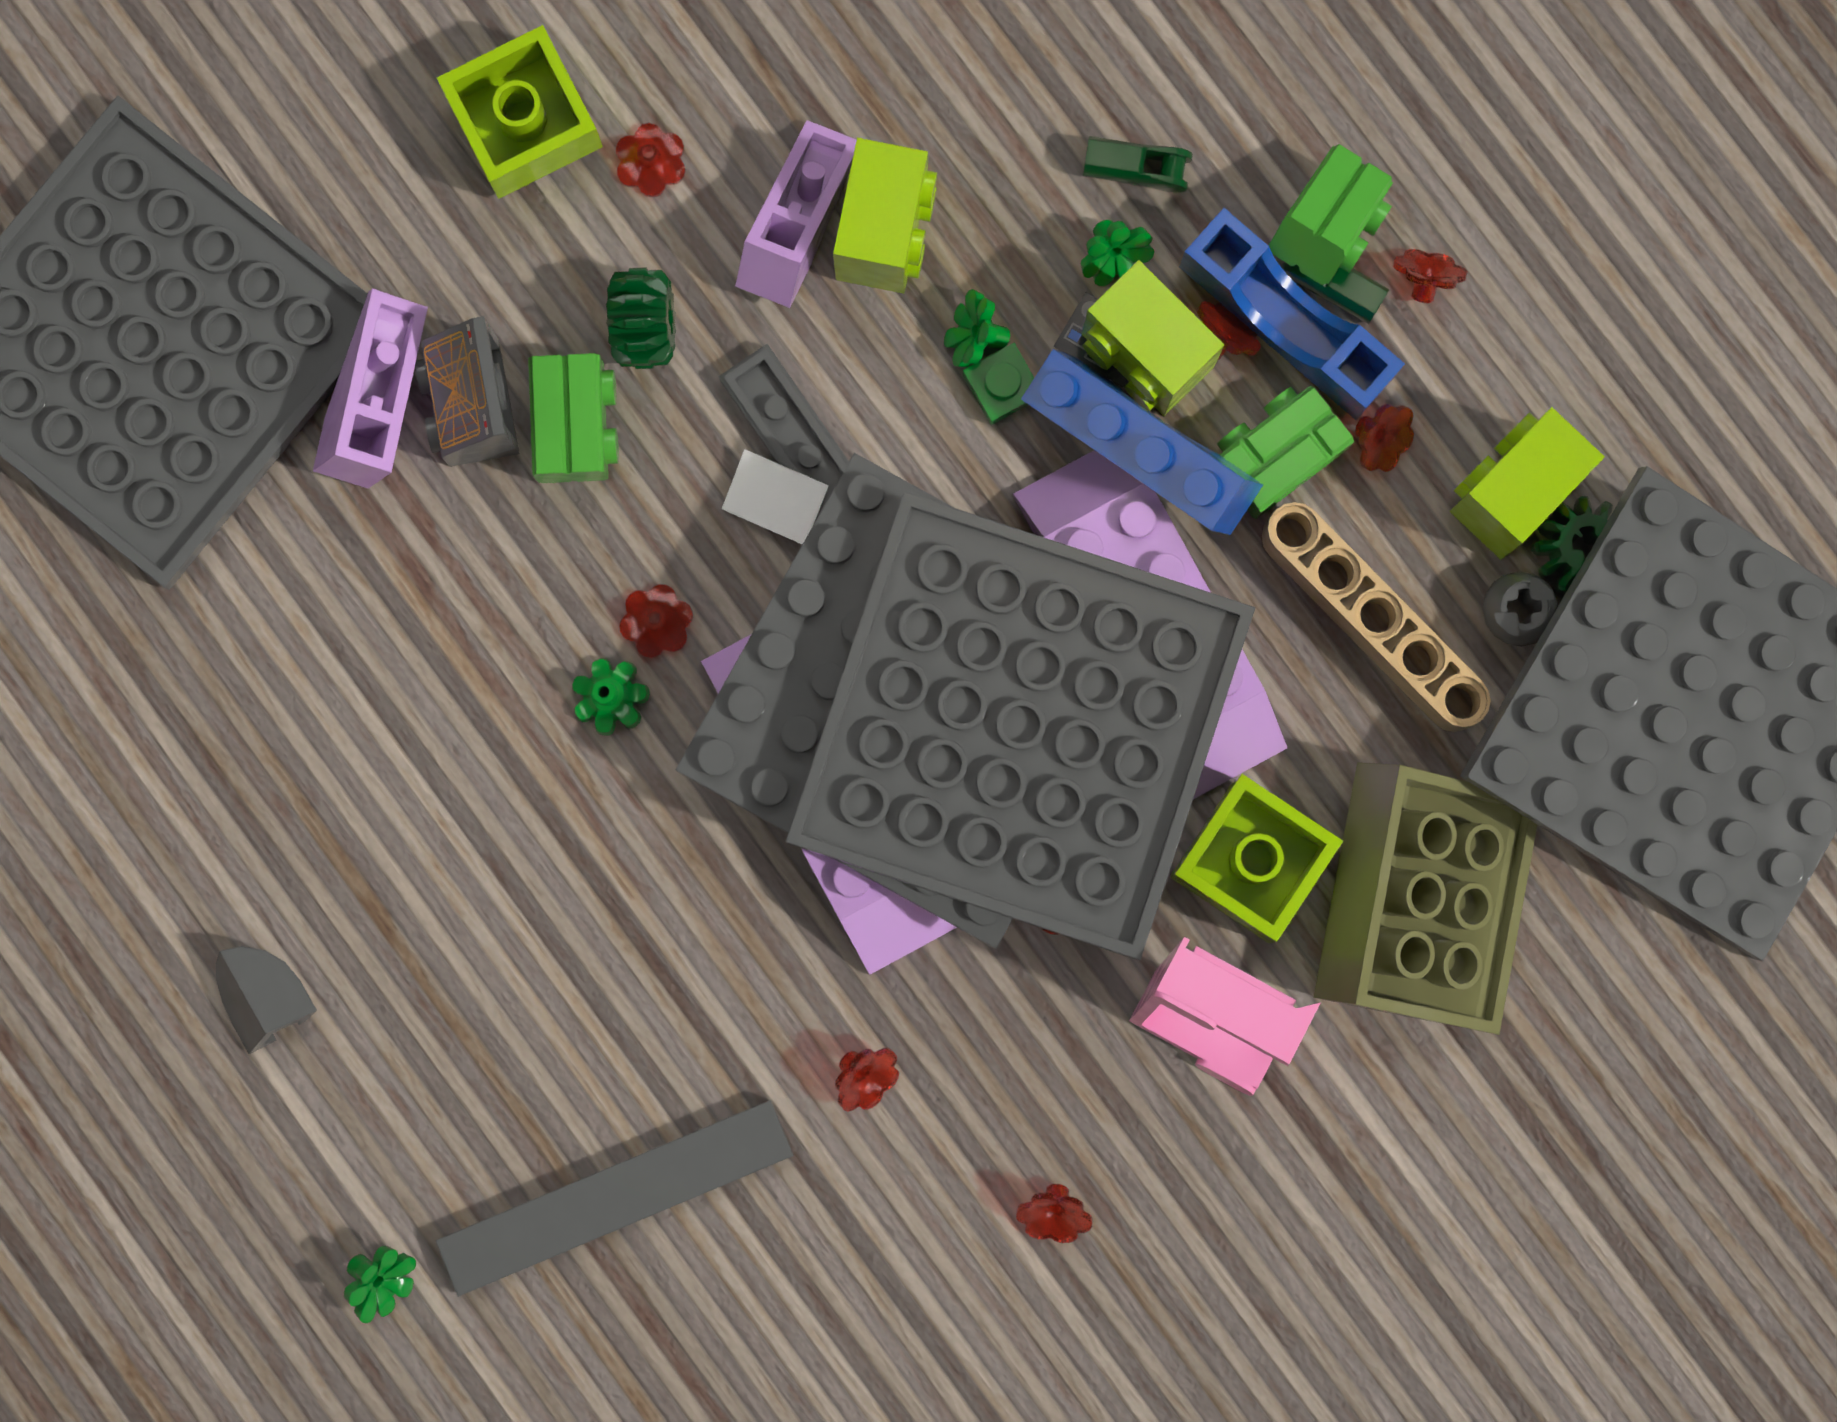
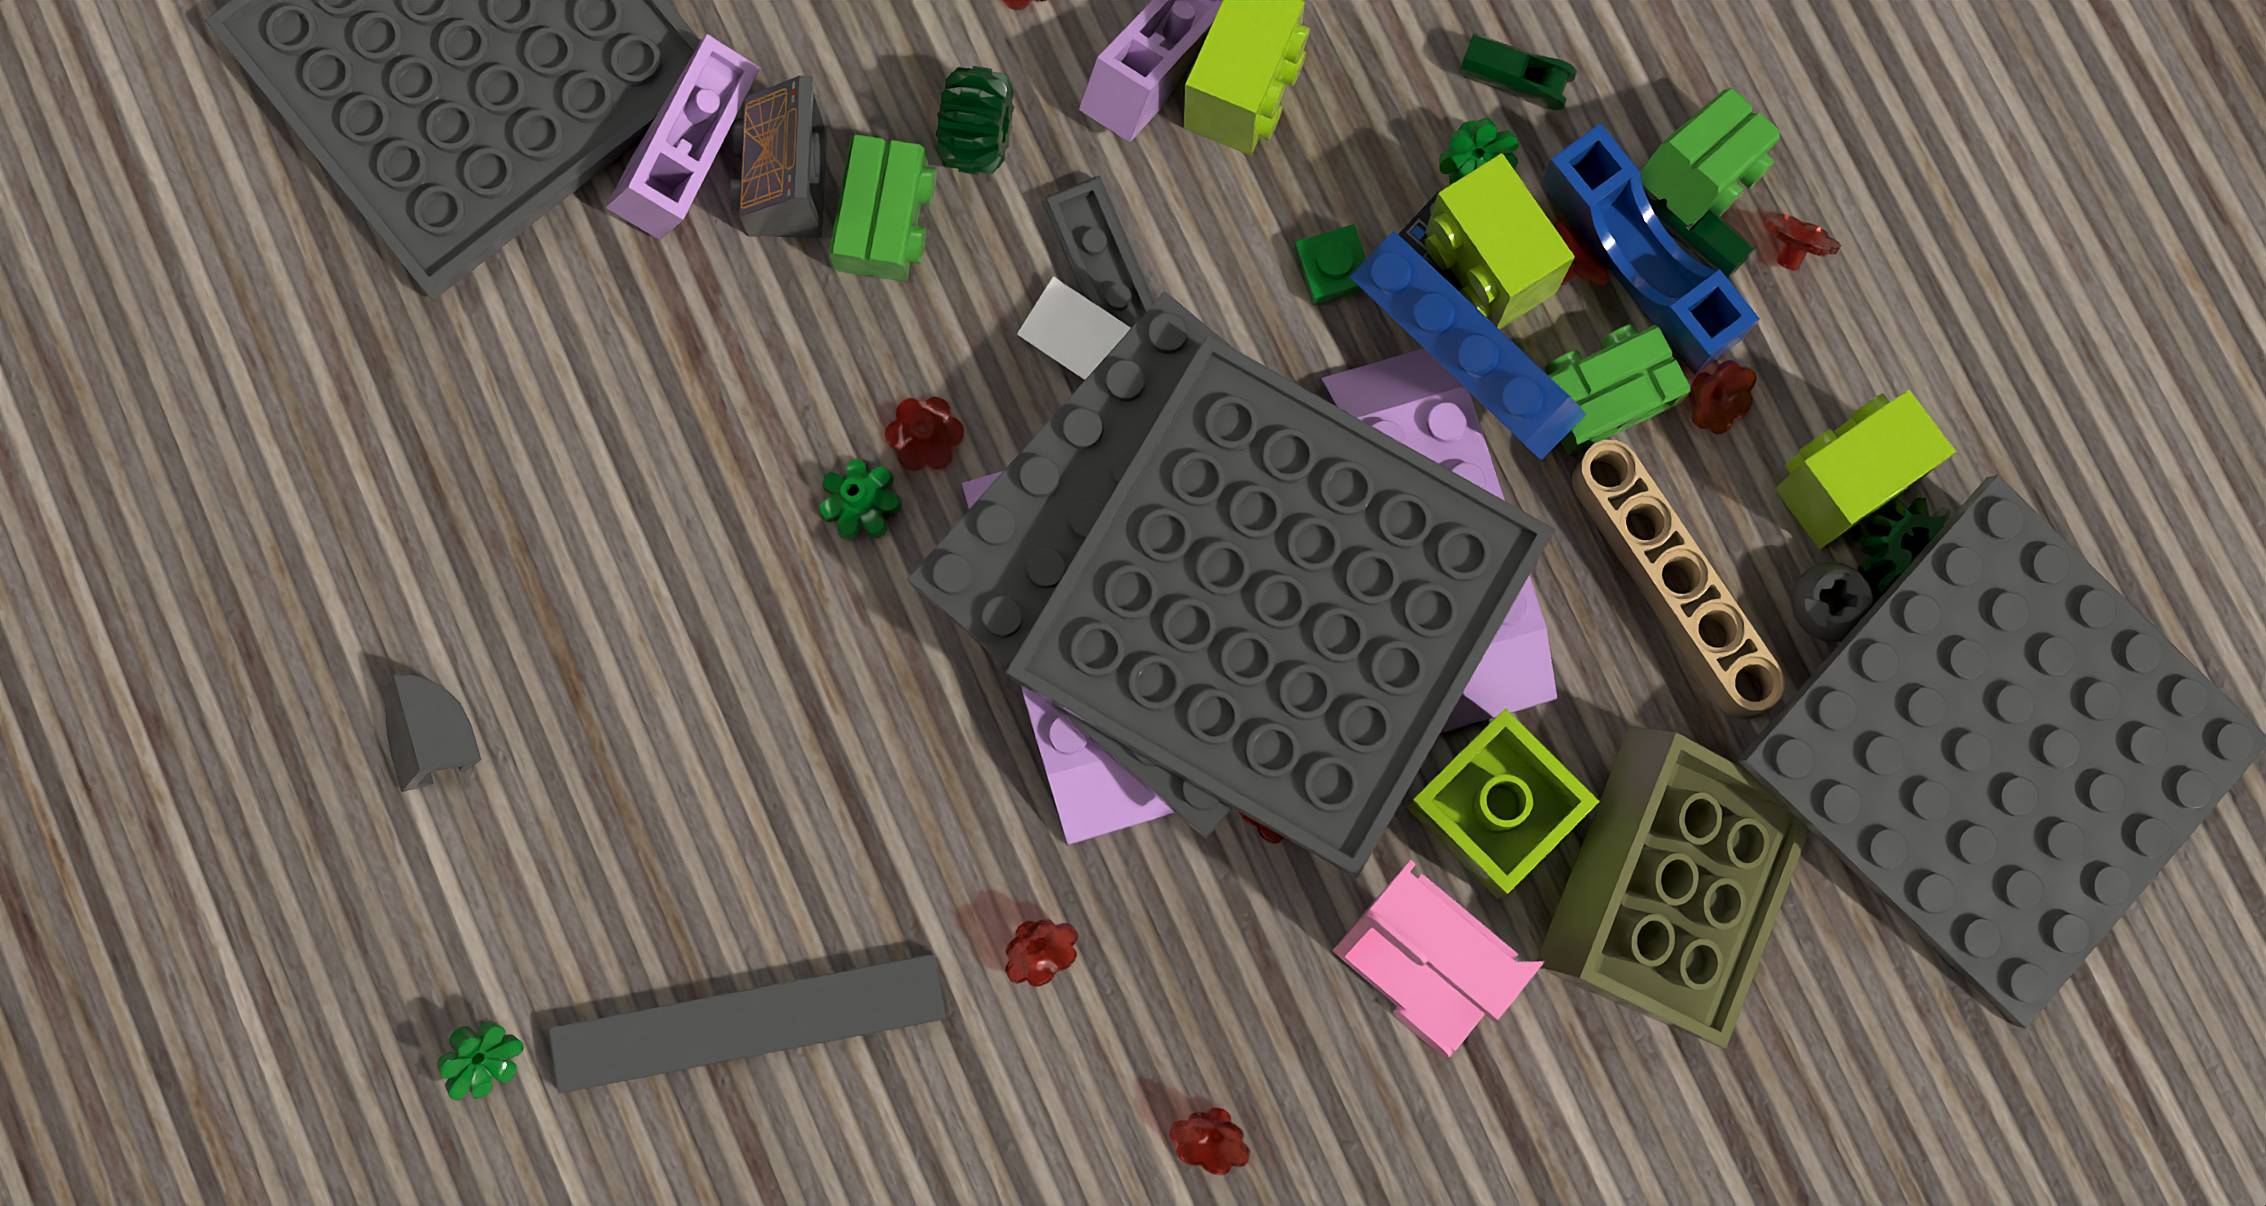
camera: 15 degrees right, 5 degrees down
(974, 330) = (1316, 203): green plant -> none

